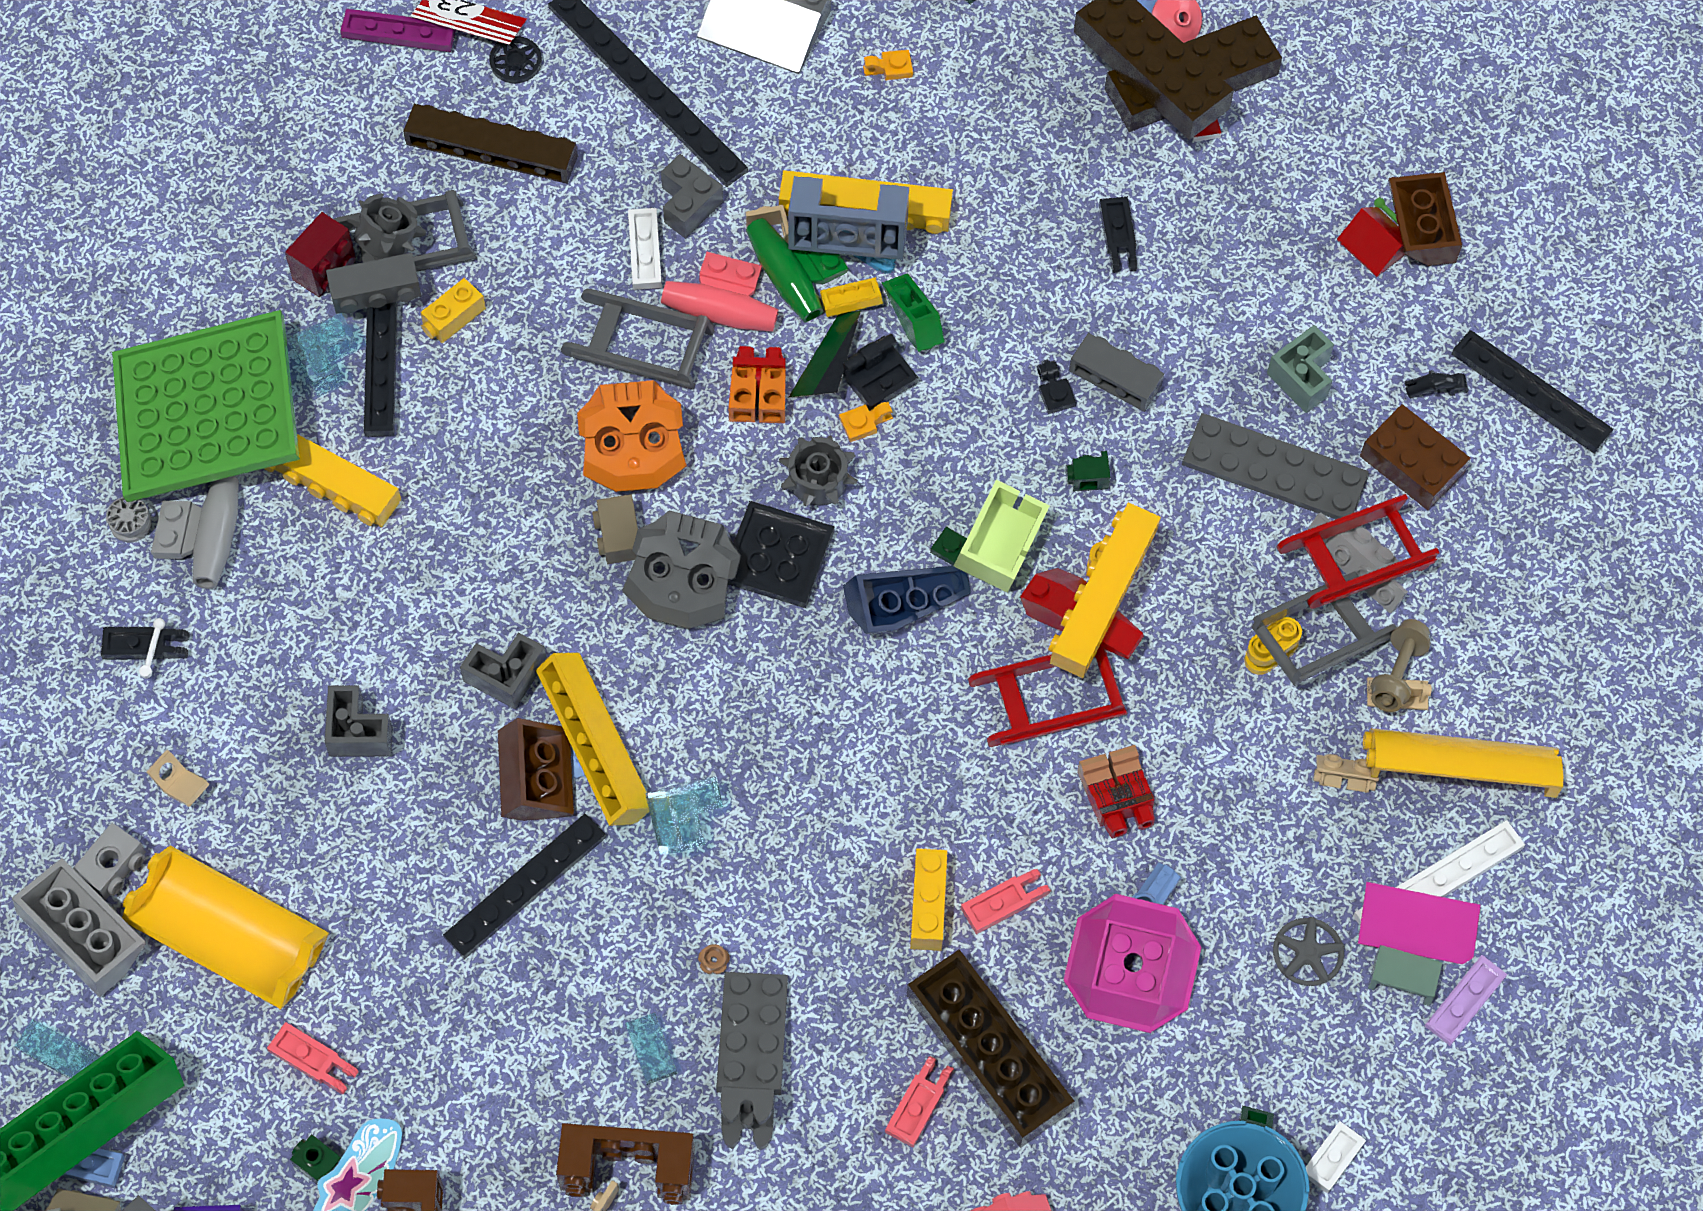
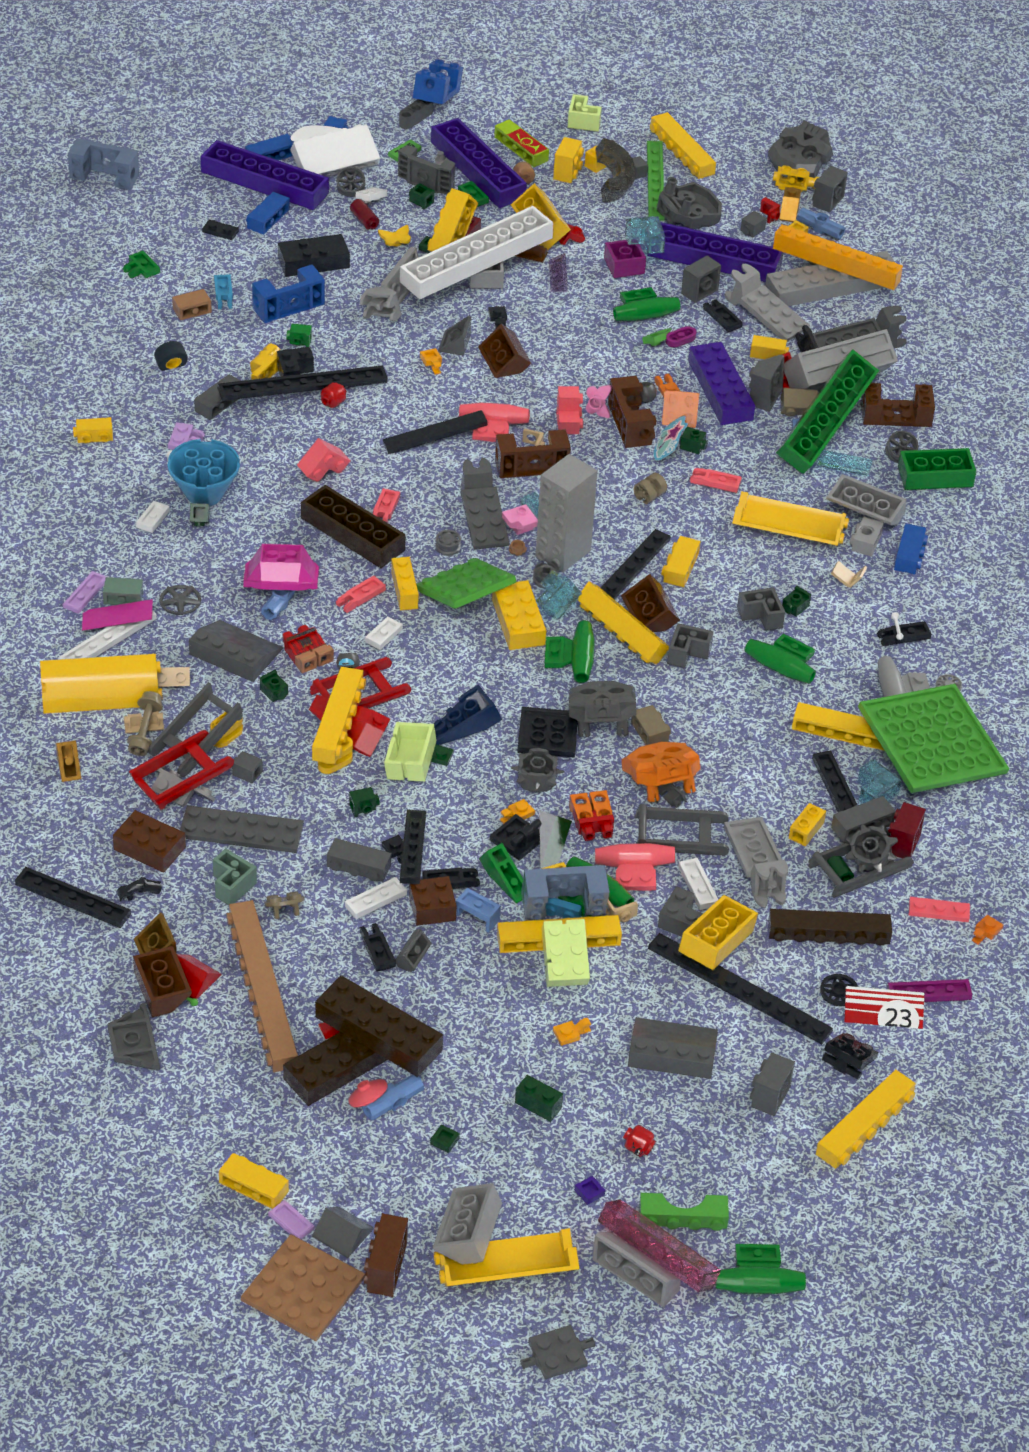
camera: 165 degrees right, 20 degrees down
(48, 819) = (911, 549): none -> blue brick
(275, 111) = (988, 928): none -> orange plate
(292, 748) = (796, 601): none -> dark green brick
(326, 151) = (939, 909): none -> coral plate
(361, 622) = (785, 657): none -> green plate
(439, 228) = (841, 868): none -> dark green brick
(439, 1048) = (650, 487): none -> dark tan wheel
(447, 865) = (681, 561): none -> yellow brick
(545, 266) = (759, 859): none -> light grey hinge
(633, 907) = (566, 512): none -> light grey brick
(649, 141) = (718, 932): none -> yellow brick
(679, 892) = (541, 571): none -> flat silver wheel
(689, 699) = (578, 652): none -> green plate
(694, 1007) = (520, 519): none -> bright pink brick
(757, 792) = (519, 616): none -> yellow brick
(829, 866) = (465, 583): none -> bright green plate
(830, 989) = (448, 543): none -> flat silver wheel
(871, 138) = (568, 953): none -> yellowish green piece
(968, 255) = (479, 907): none -> medium blue panel
(985, 804) = (383, 633): none -> white plate
(992, 322) = (458, 877): none -> black hinge
(1028, 281) = (433, 901): none -> reddish brown brick
(1036, 369) = (413, 847): none -> black tile
(1059, 738) = (348, 660): none -> dark grey piece
(1071, 216) = (413, 951): none -> dark grey brick
(1104, 310) = (375, 898): none -> white plate
(1183, 729) = (273, 686): none -> dark green brick
(1222, 316) = (291, 899): none -> dark tan plate
(1233, 817) = (233, 649): none -> dark grey slope
(1252, 568) = (247, 767): none -> dark grey brick
(1286, 202) = (262, 984): none -> medium nougat brick
(1421, 290) = (155, 936): none -> pearl gold slope
(1467, 155) = (134, 1040): none -> dark grey wing
(1523, 637) = (68, 760): none -> pearl gold slope

